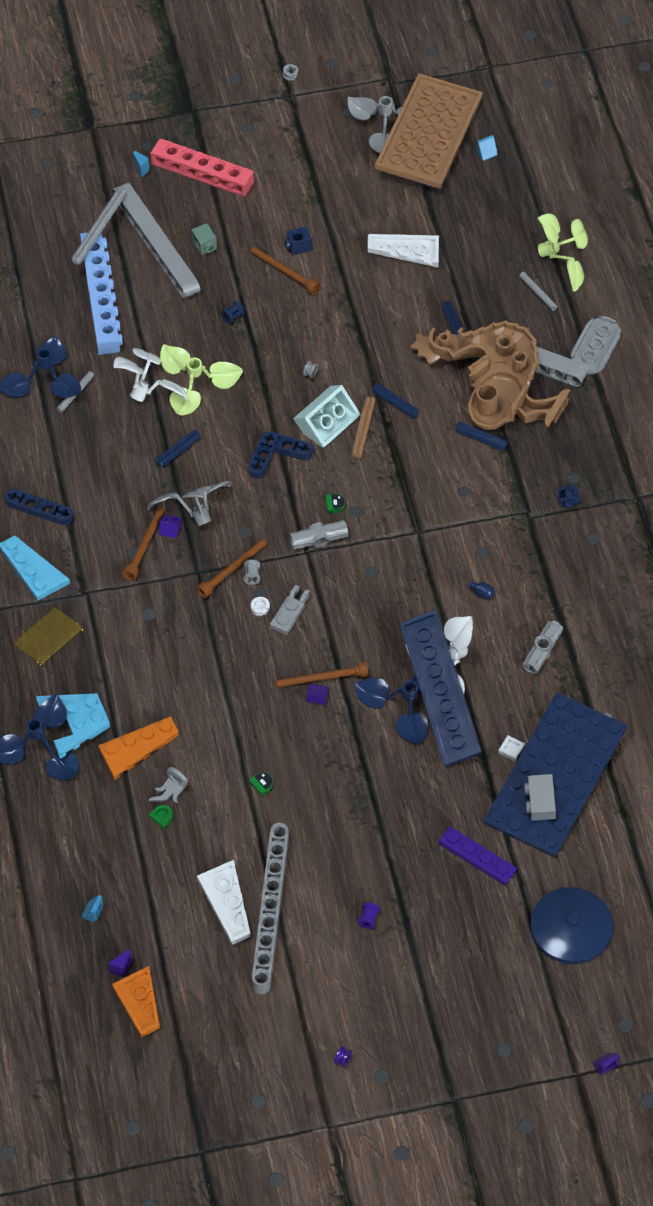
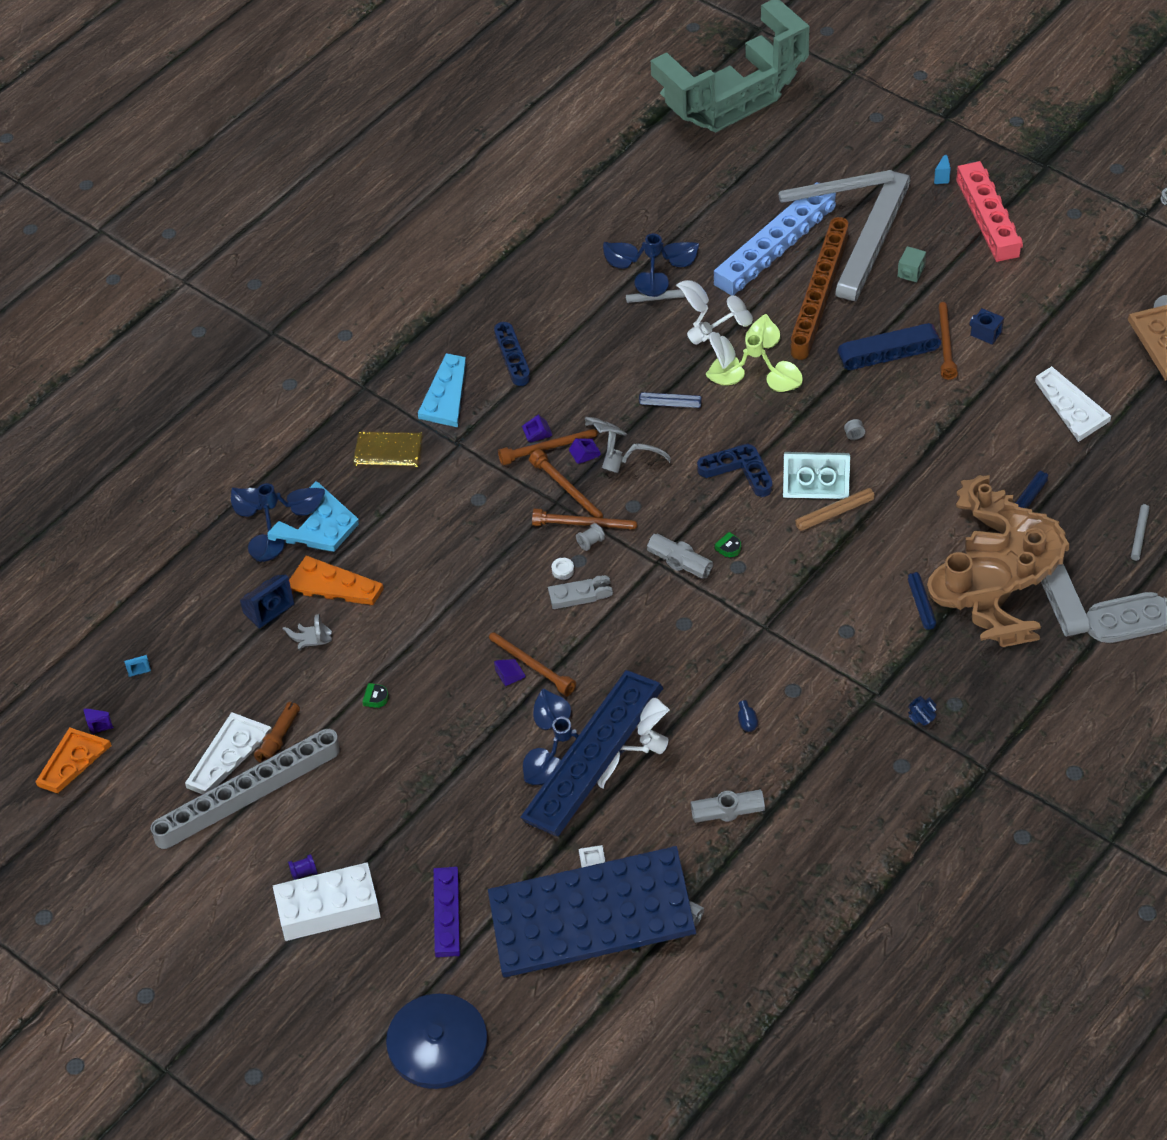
camera: 55 degrees right, 5 degrees down
(117, 791) = (268, 600): none -> dark blue slope
(122, 540) = (536, 429): none -> dark purple slope
(155, 555) = (540, 460): none -> dark orange piece
(161, 815) = (276, 648): green tile -> none
(170, 300) = (819, 288): none -> dark orange beam
(232, 312) = (851, 331): dark blue bush -> none
(244, 866) = (273, 740): none -> dark orange pin
(260, 302) = (889, 346): none -> dark blue beam
(343, 1056) = (135, 948): dark purple bush -> none
(395, 400) = (890, 512): dark blue axle -> none
(410, 918) = (326, 901): none -> white brick
(541, 797) = (544, 912): light grey brick -> none

